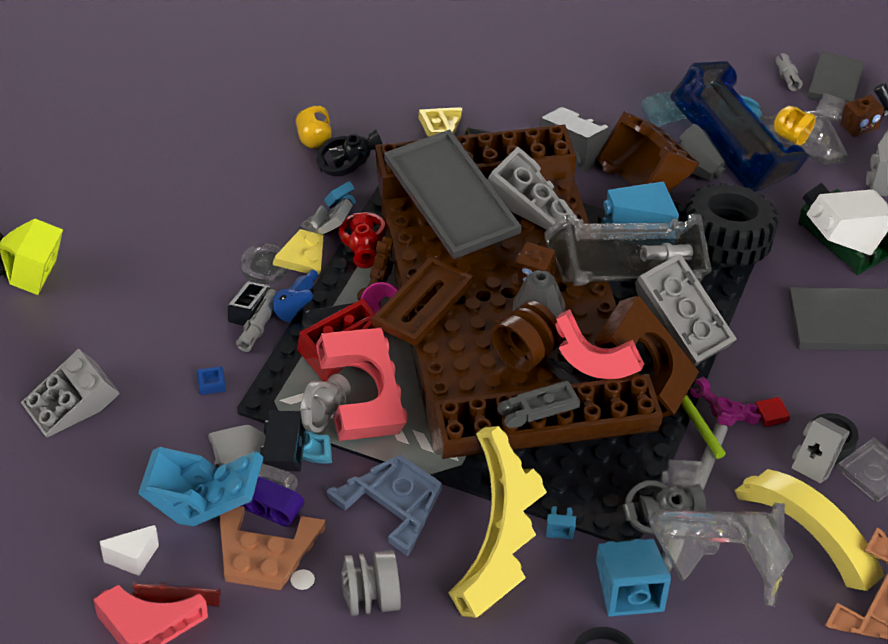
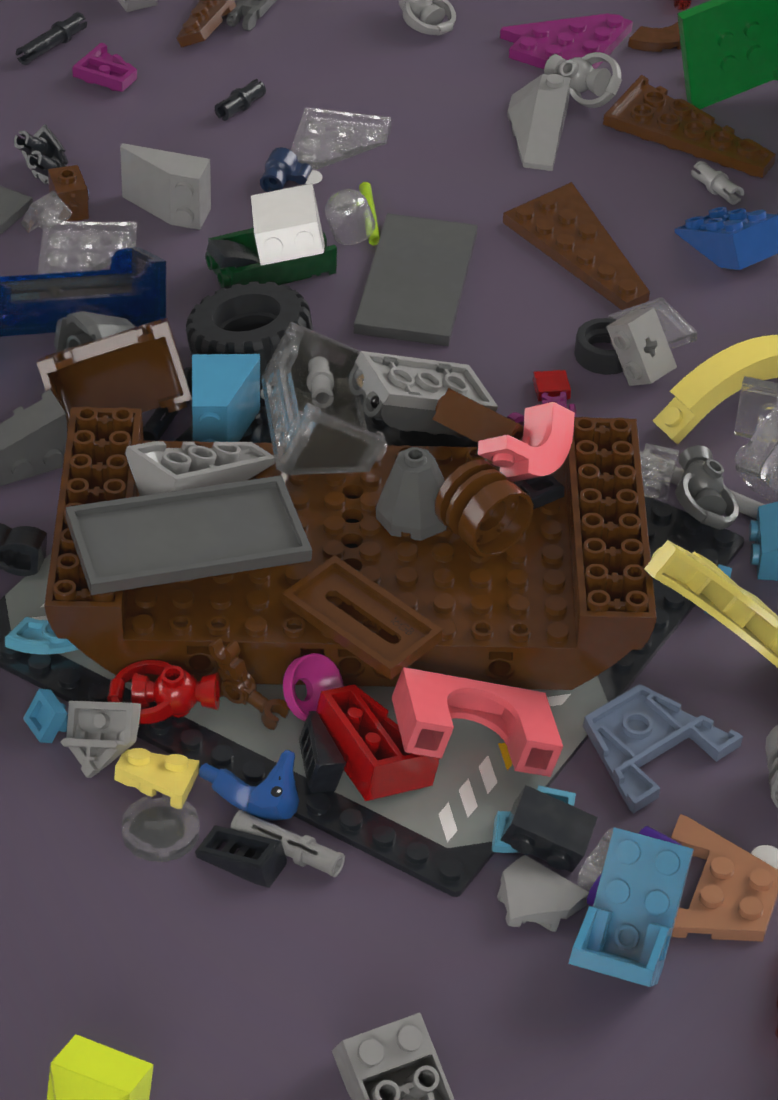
camera: 80 degrees left, 5 degrees down
(131, 549) = (717, 1026): white slope -> none
(211, 380) = (392, 916): blue tile -> none
(321, 400) = (488, 771): light grey piece -> none
(535, 259) = (343, 484): reddish brown head -> none
(539, 404) = (619, 506): dark grey hinge -> none
(794, 124) = (78, 243): yellow helmet -> none

